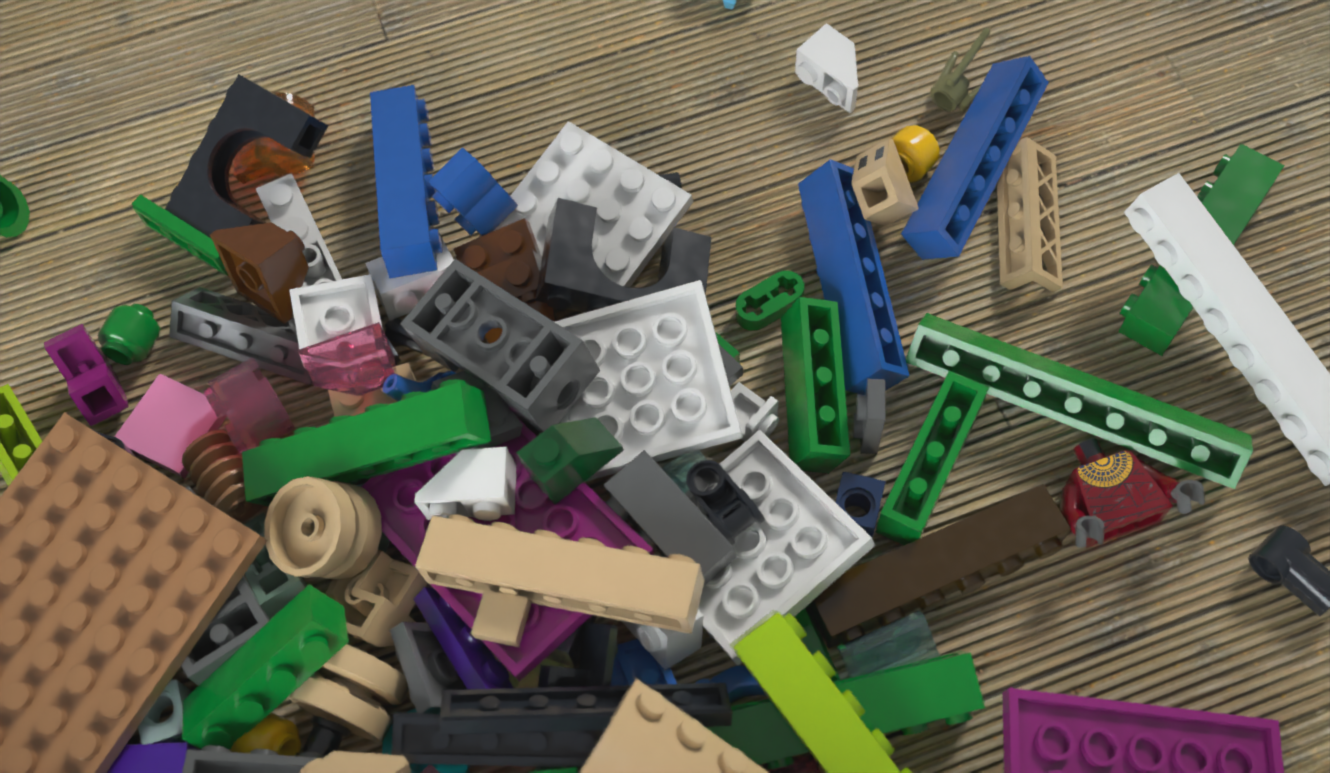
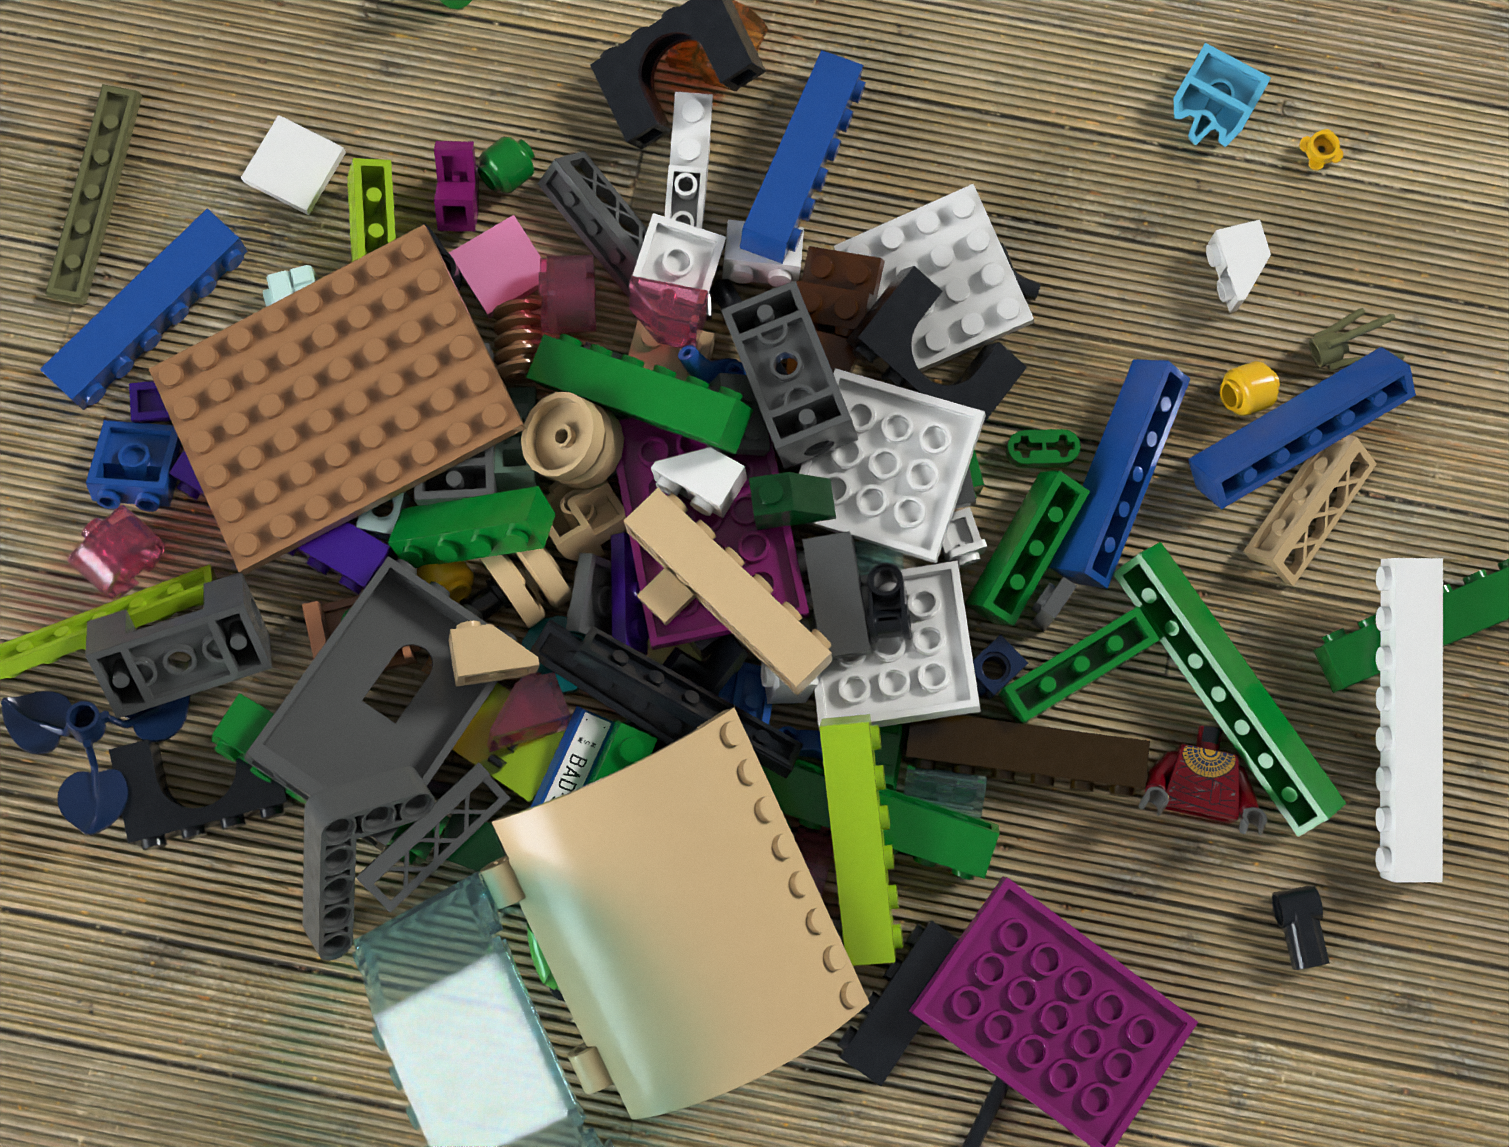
camera: 25 degrees right, 15 degrees up
(178, 232) = (595, 96): green tile -> none
(263, 265) = (645, 173): reddish brown slope -> none
(473, 193) = (848, 212): blue brick -> none
(882, 185) = (1200, 405): tan slope -> none

